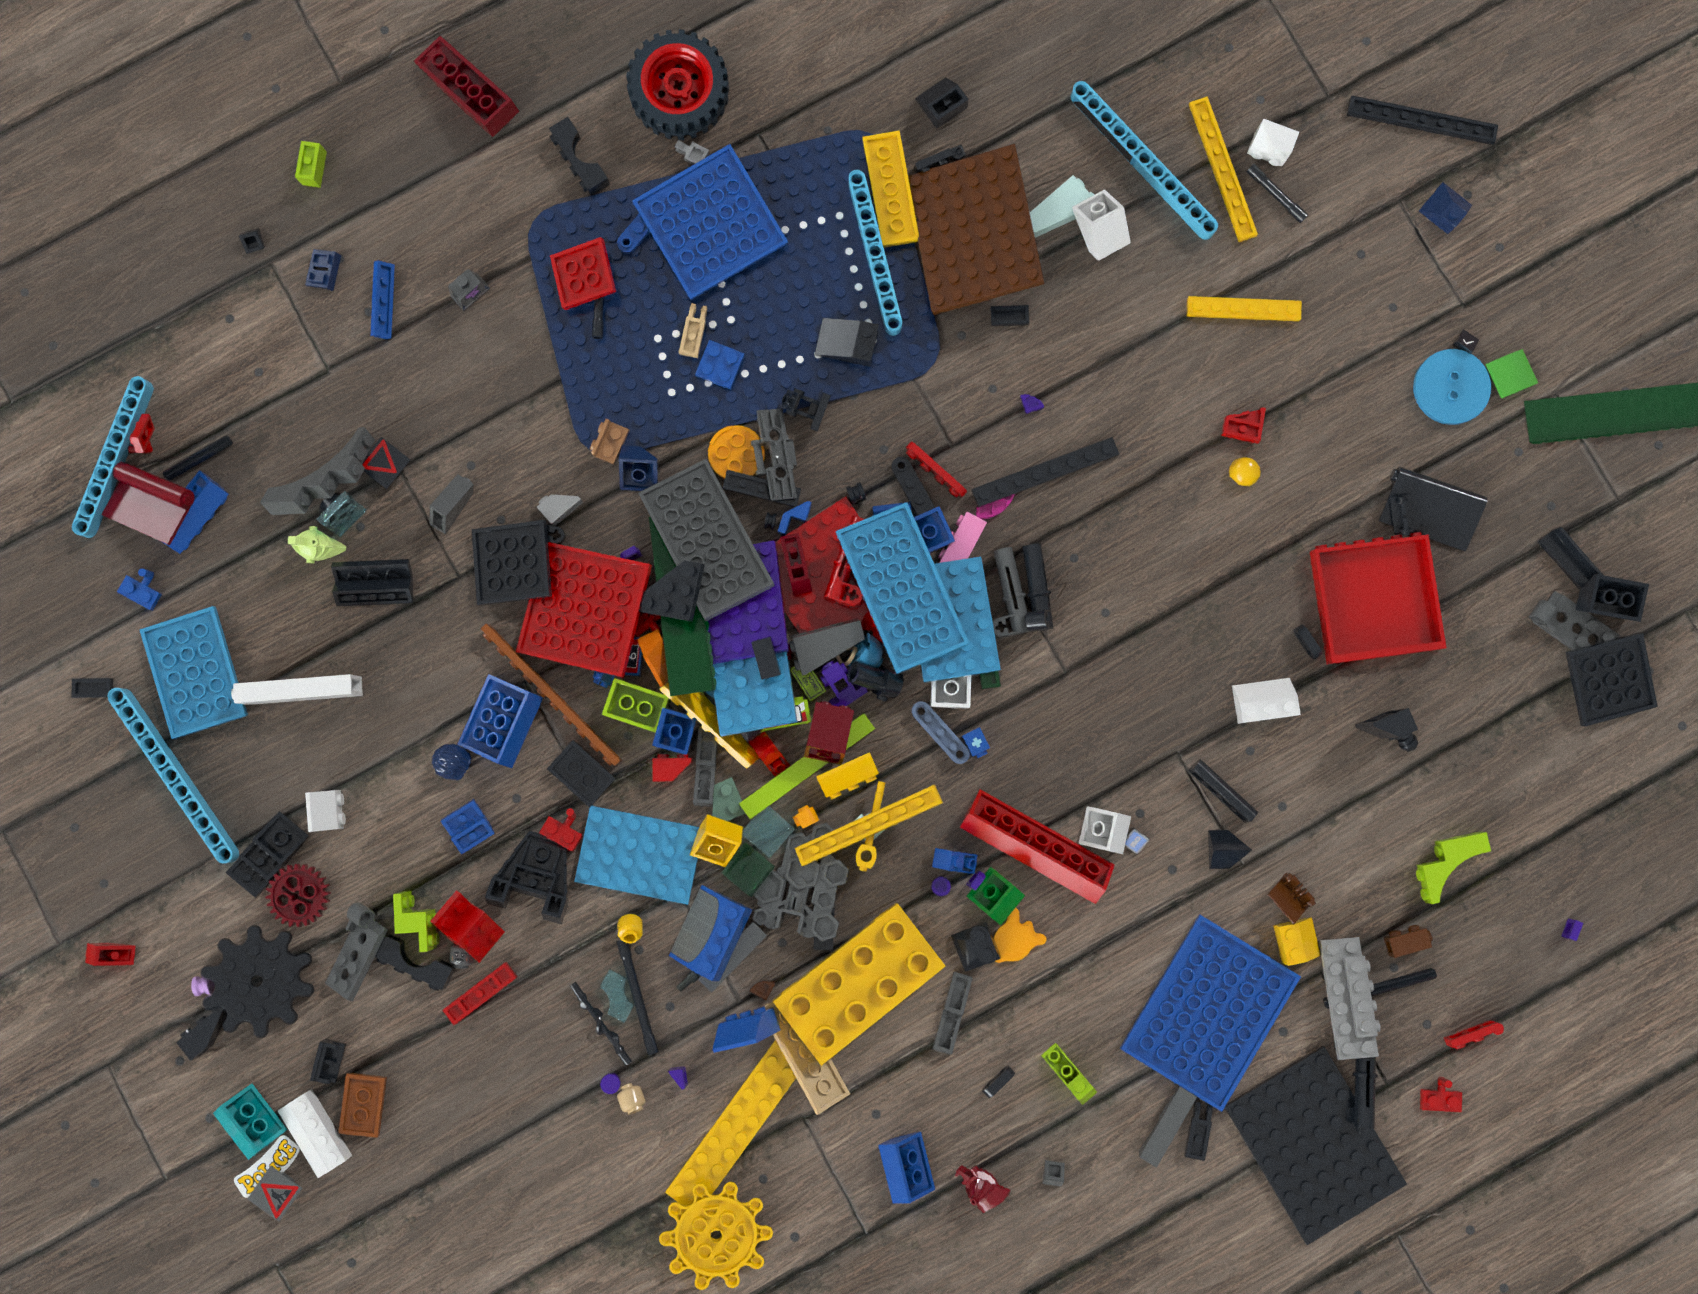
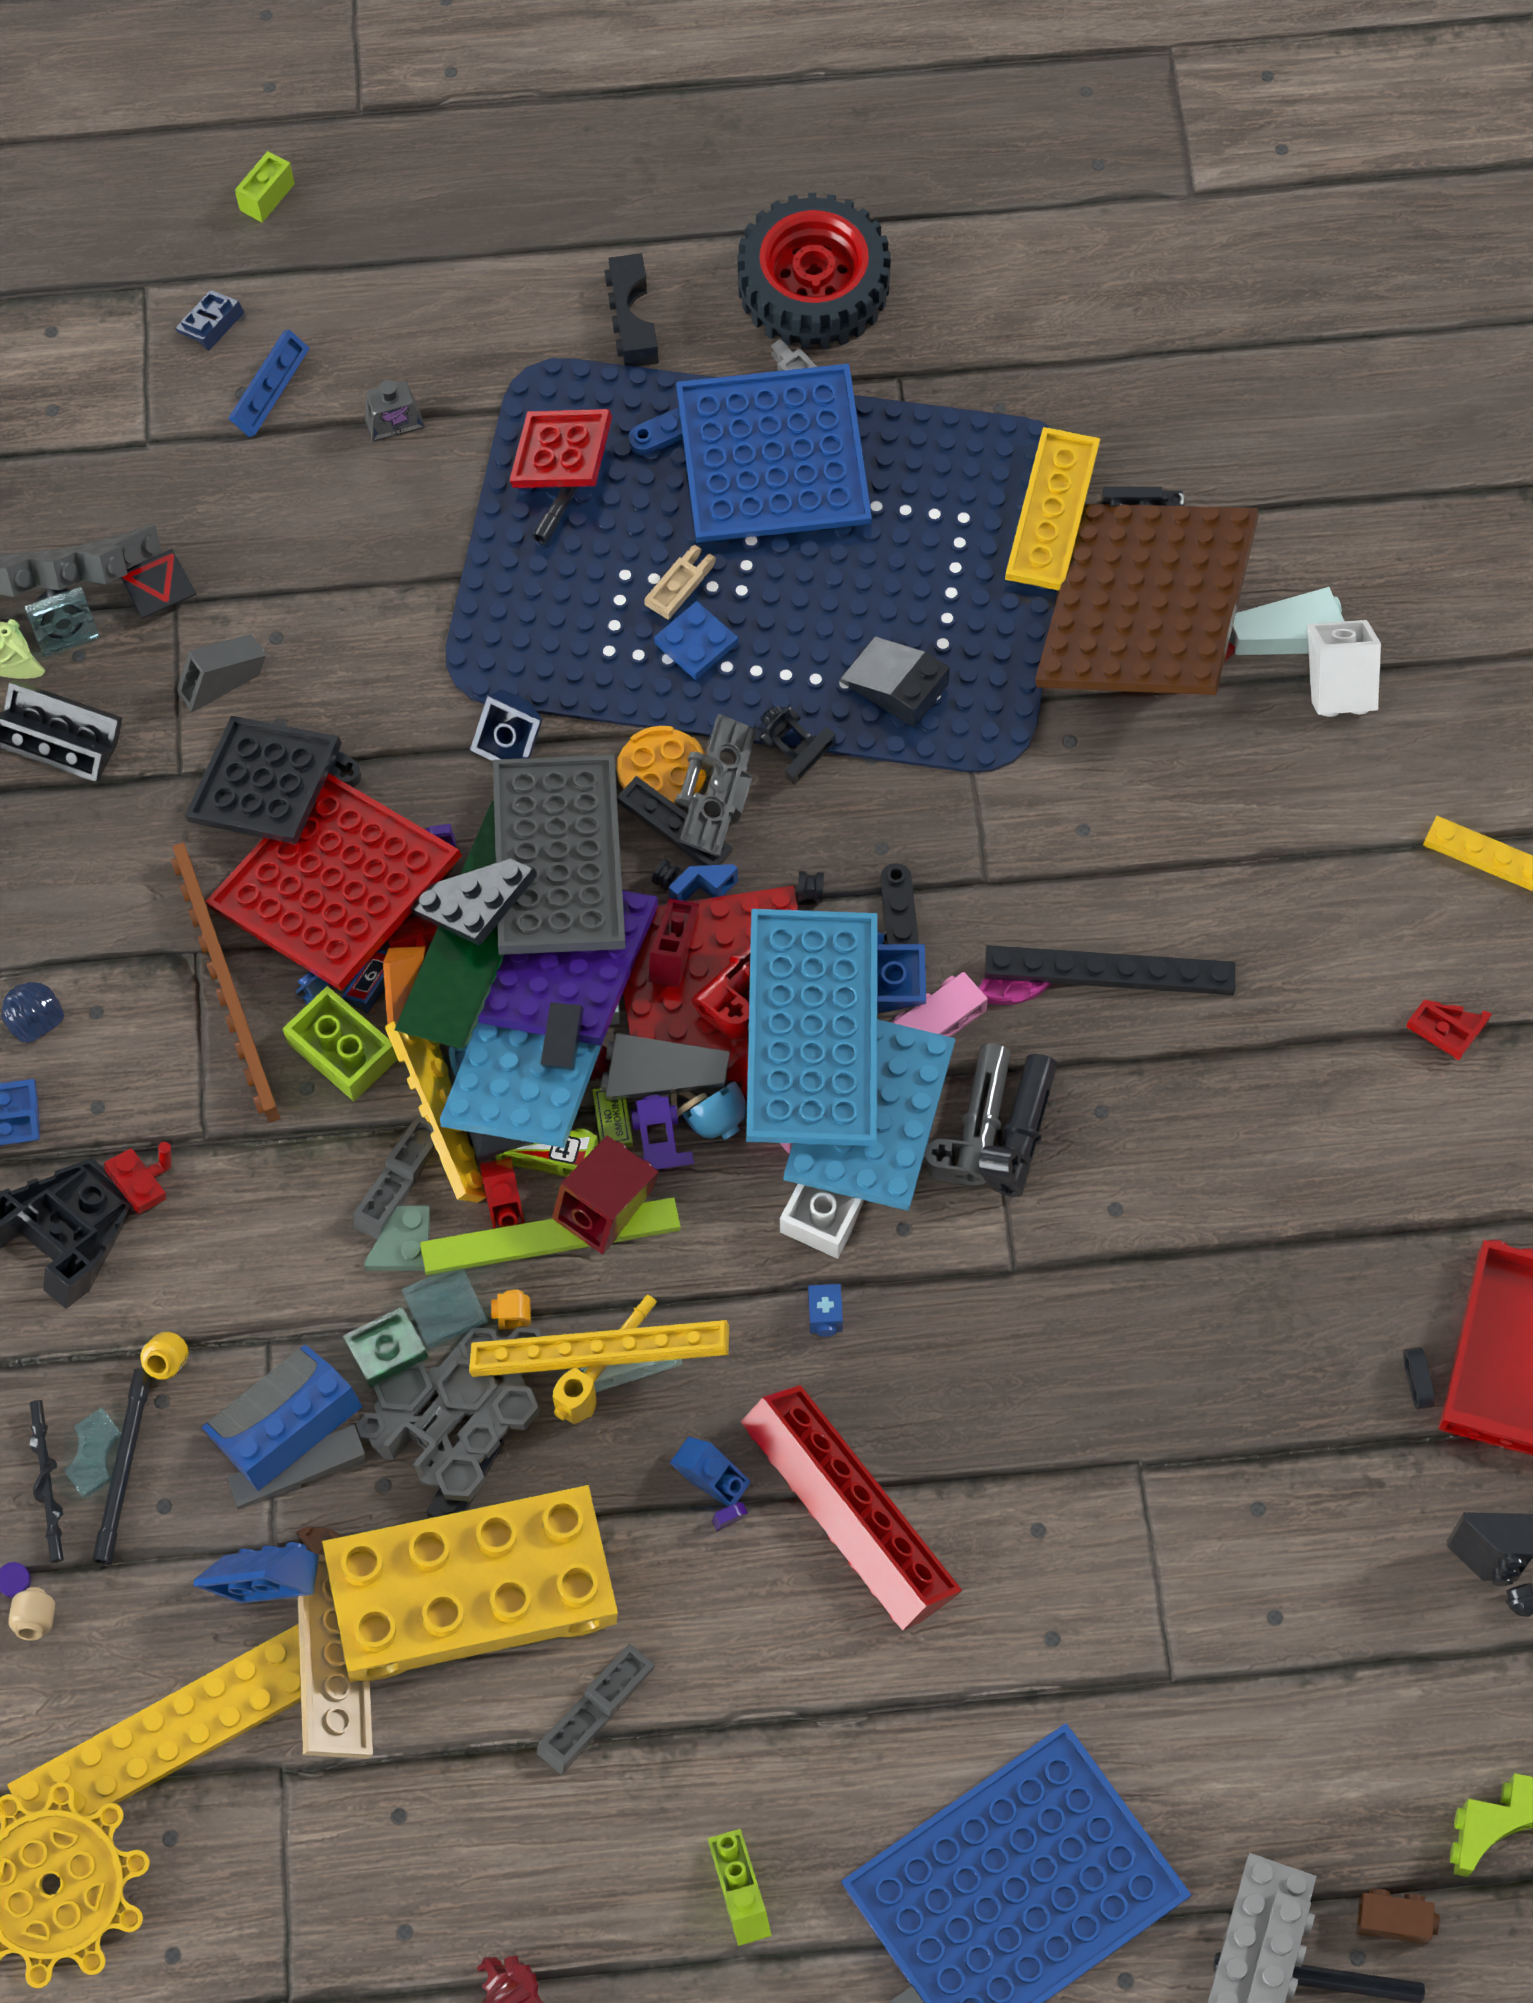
camera: 25 degrees right, 20 degrees down
(252, 240) = (135, 249): black slope -> none
(467, 86) = (525, 173): dark red slope -> none
(500, 721) = (133, 987): blue slope -> none
(558, 507) = (371, 735): light grey slope -> none
(581, 773) = (210, 1108): black plate -> none
(609, 441) = (485, 675): medium nougat bracket -> none
(637, 855) = (235, 1261): dark azure plate -> none
(669, 768) = (343, 1154): red slope -> none
(674, 731) = (374, 1096): blue slope -> none
(679, 1075) = (124, 1612): dark purple slope -> none
(691, 977) = (219, 1473): pearl dark grey bar -> none
(717, 840) = (359, 1283): yellow slope -> none
(848, 776) = (604, 1269): yellow slope -> none
(875, 243) = (990, 591): medium azure beam -> none
(881, 680) = (723, 1156): black piece -> none
(906, 1167) = (405, 1917): blue slope -> none
(930, 465) = (949, 909): red plate -> none
(940, 732) = (777, 1273): sand blue plate -> none
(940, 886) = (670, 1504): dark purple tile -> none
(942, 101) = (1181, 431): black slope -> none
(976, 946) = (682, 1617): black slope -> none
(989, 680) = (890, 1228): dark green tile -> none
(996, 896) = (750, 1553): green slope -> none
(998, 1081) = (618, 1846): black beam -> none
(1009, 315) = (1153, 741): black tile -> none
(1016, 939) = (750, 1637): light orange tile -> none
(1031, 403) = (1132, 871): dark purple tile -> none
(1105, 830) = (970, 1526): white slope -> none
(1136, 840) = (1011, 1565): slope -> none
(1142, 151) = (1444, 623): medium azure beam -> none
(1223, 791) = (1186, 1548): black brick -> none
(1225, 849) = (1150, 1641): black slope -> none
(1244, 471) = (1422, 1091): yellow hair -> none
(1265, 700) = (1312, 1441): white slope -> none
(1290, 897) = (1226, 1757): reddish brown hinge -> none
(1297, 942) = (1210, 1836): yellow slope -> none

